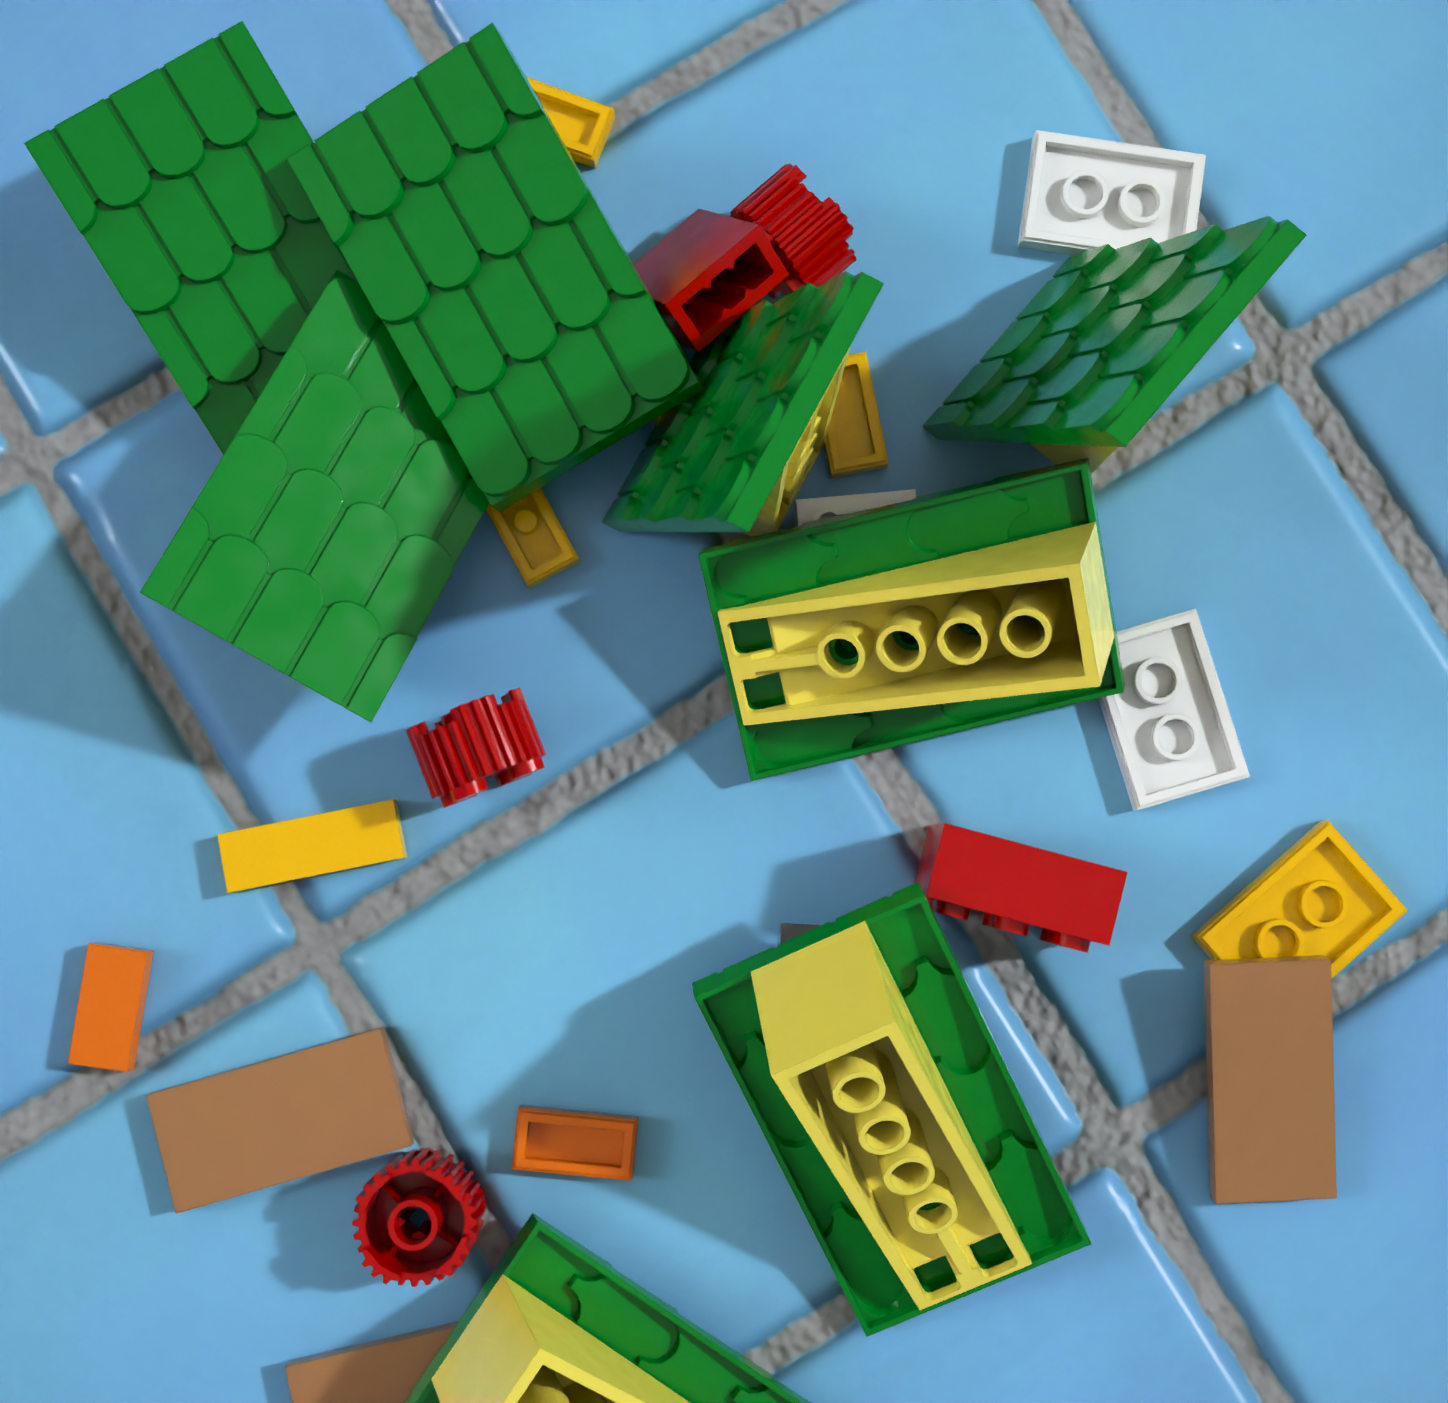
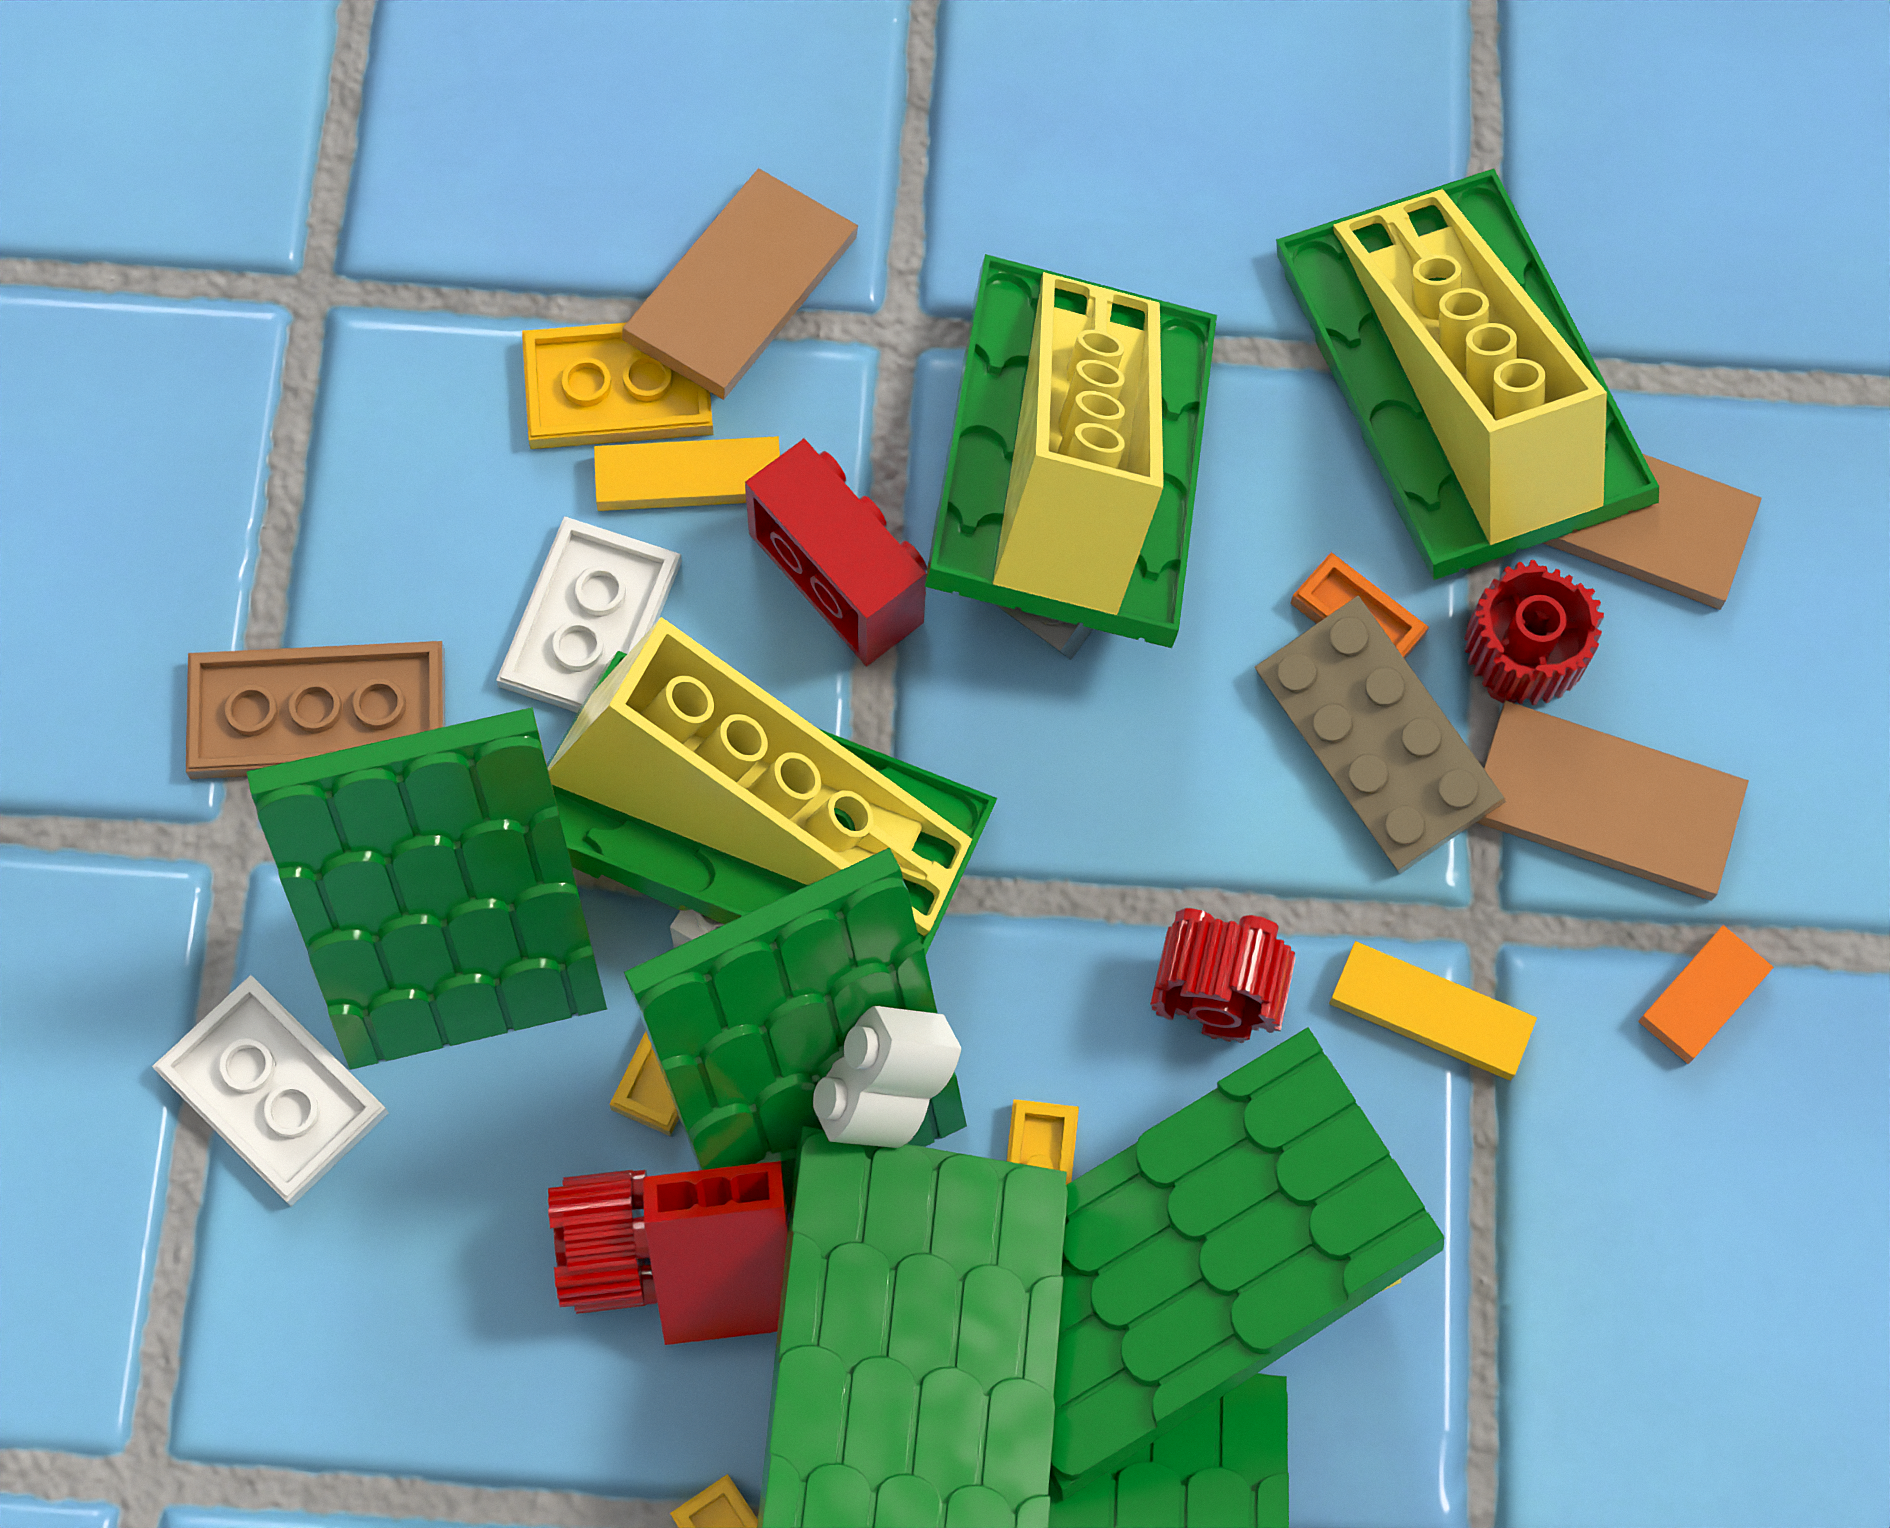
camera: 145 degrees left, 15 degrees down
(491, 1043) = (1380, 734): none -> dark tan plate
(654, 439) = (886, 1077): none -> white brick
(1187, 882) = (679, 472): none -> yellow tile
(1309, 494) = (306, 702): none -> medium nougat tile

